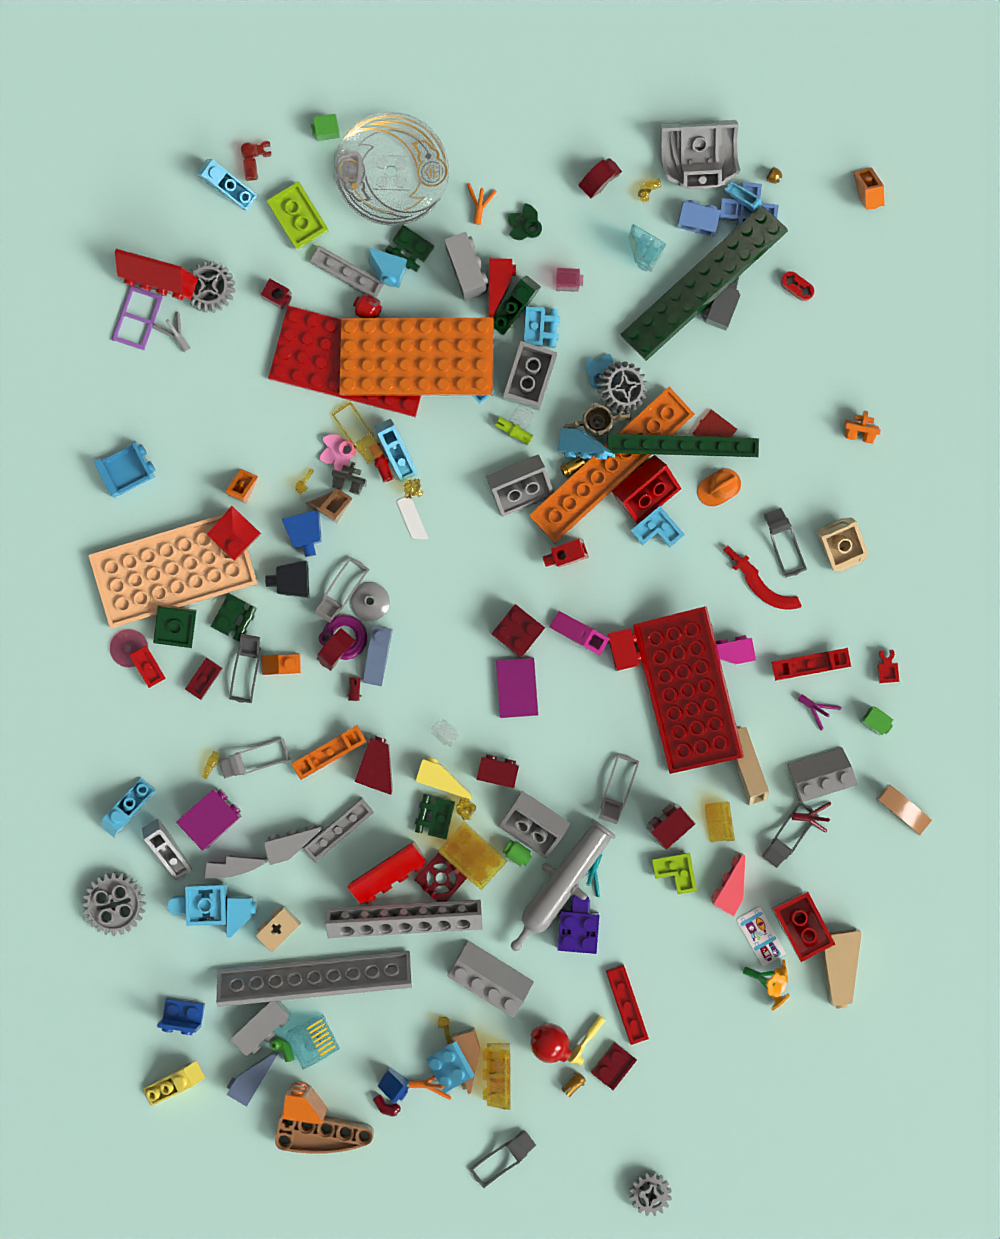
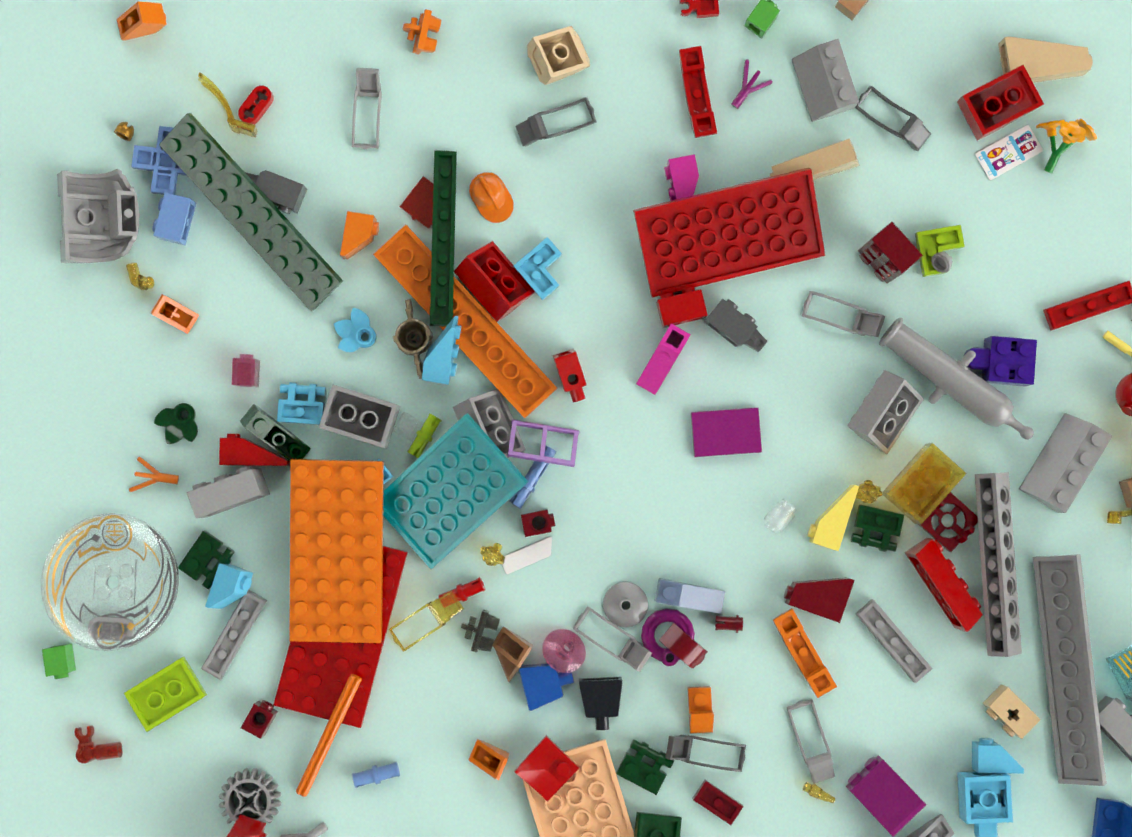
camera: 90 degrees left, 0 degrees up
(226, 184) = (125, 780): medium azure slope -> none
(229, 391) = (376, 774): none -> medium blue pin
(234, 866) = (939, 765): light grey slope -> none
(262, 351) = (328, 735): none -> orange axle
(284, 848) = (915, 703): light grey slope -> none
(300, 485) = (489, 688): clear yellow hand -> none
(326, 543) = (558, 656): none -> clear pink dish
(335, 452) = (448, 647): bright pink plate -> none
(367, 306) = (275, 609): red head -> none
(395, 450) = (447, 575): medium azure slope -> none
(439, 518) = (528, 527): none -> dark red brick
(466, 452) = (450, 491): none -> teal plate
(480, 523) = (533, 475): none -> medium blue pin
(495, 529) = (541, 458): none -> medium lavender window
(498, 771) = (824, 454): dark red brick -> none
(517, 853) = (919, 431): bright green brick -> none
(518, 631) = (661, 431): dark red brick -> none
(571, 466) = (466, 367): pearl gold pin -> none
(593, 872) = (944, 342): teal plant -> none
(599, 177) = (123, 334): dark red brick -> none
(607, 695) = (735, 326): none -> dark grey hinge
(617, 219) = (174, 313): none -> orange slope
(623, 394) = (390, 303): light grey gear -> none
(645, 248) = (208, 281): clear light blue slope -> none
(663, 873) = (942, 262): none -> light grey piece
(687, 373) = (358, 233): none -> orange slope
(719, 821) = (879, 198): clear yellow panel -> none
(732, 890) = (960, 185): coral slope -> none
(744, 196) = (149, 164): medium azure piece -> none
(758, 586) = (606, 153): red sword -> none
(783, 265) = (235, 125): none -> clear yellow piece
(810, 818) = (874, 97): dark red plant -> none
(814, 382) = (367, 85): none -> light grey piece

